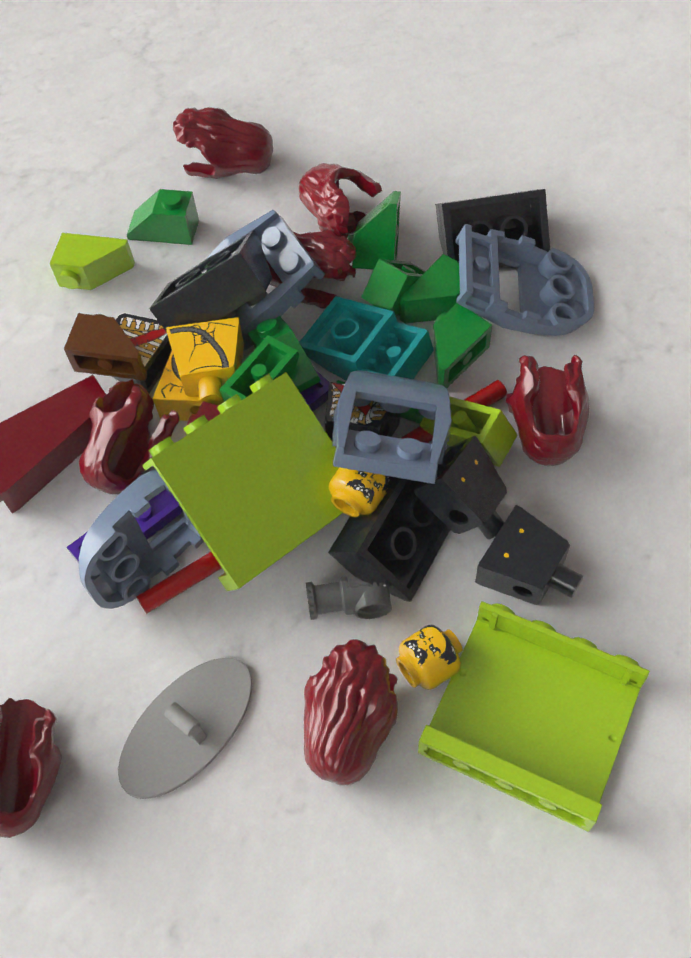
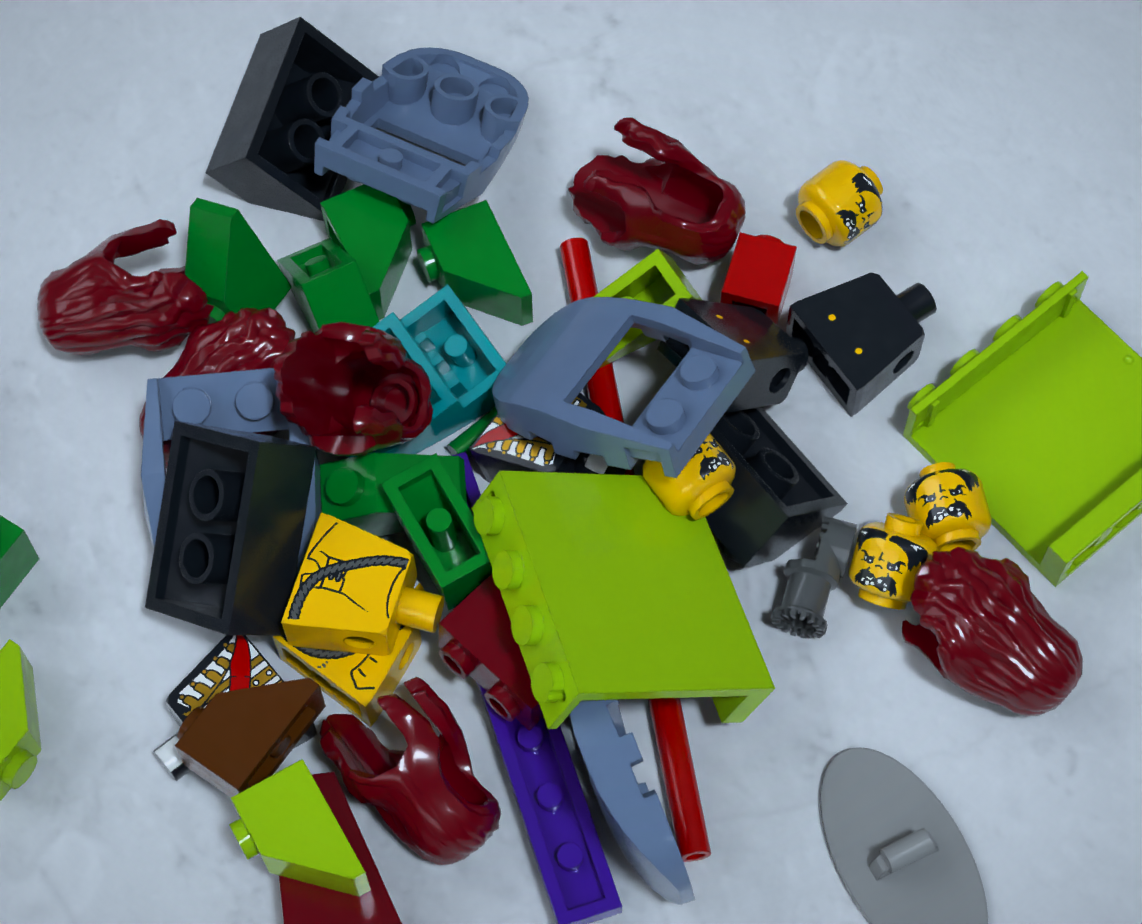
camera: 70 degrees left, 5 degrees up
(60, 392) = (297, 832): none -> lime slope
(314, 296) = (352, 389): none -> dark red hair
(376, 627) = (888, 559): none -> yellow head
(532, 485) = (759, 274): none -> red brick
(614, 510) = (839, 203): none -> yellow head

